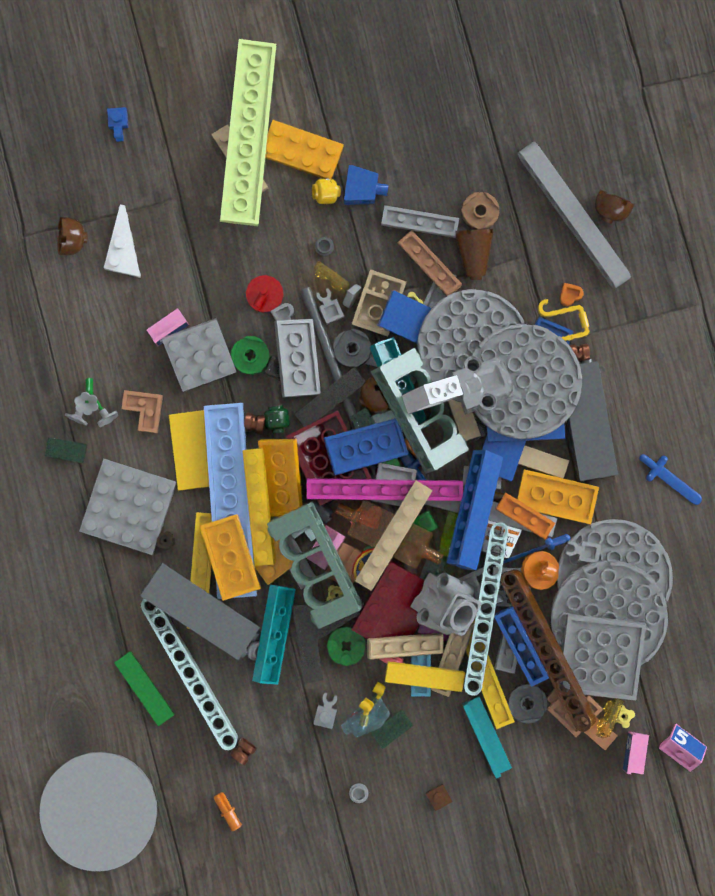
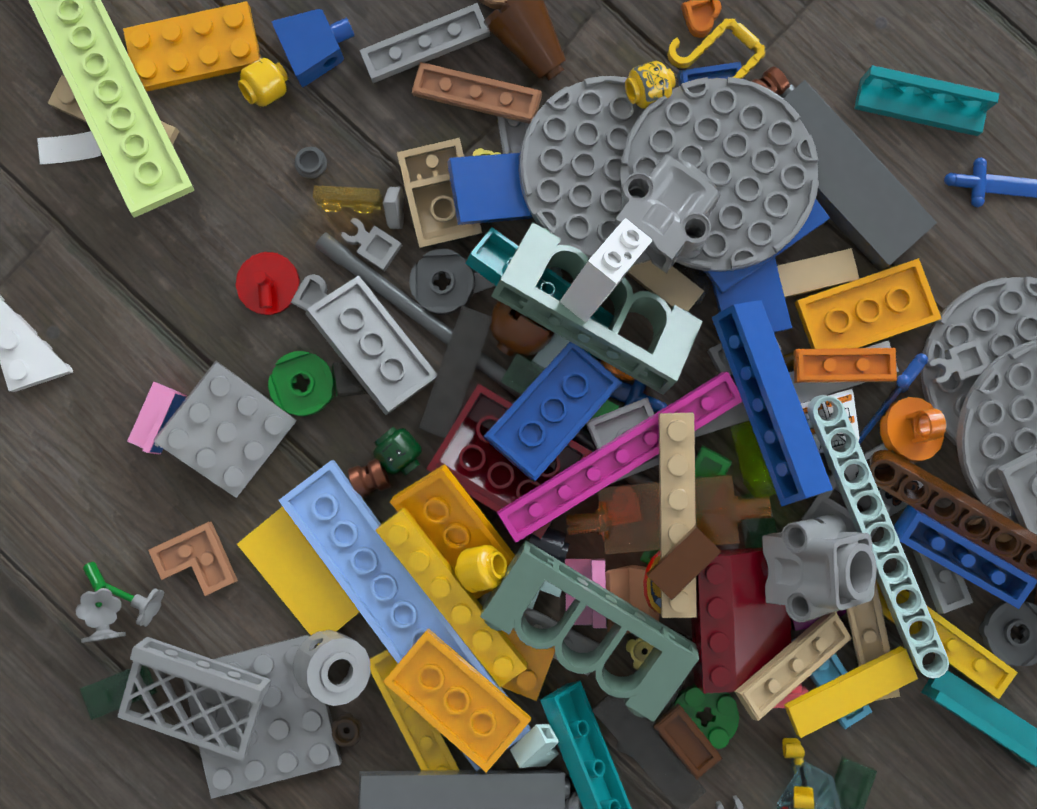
camera: 30 degrees left, 0 degrees up
(110, 462) = (194, 670): none -> light grey fence
(171, 496) = (312, 667): none -> light grey piece
(208, 162) = (68, 148): none -> white sticker
(253, 606) = (536, 747): none -> light aqua piece
(281, 500) = (480, 568): none -> yellow head
(329, 650) = (687, 741): none -> reddish brown tile
(381, 559) = (683, 562): none -> reddish brown tile
(518, 314) = (649, 83): none -> yellow head
(654, 409) = (924, 100): none -> teal fence

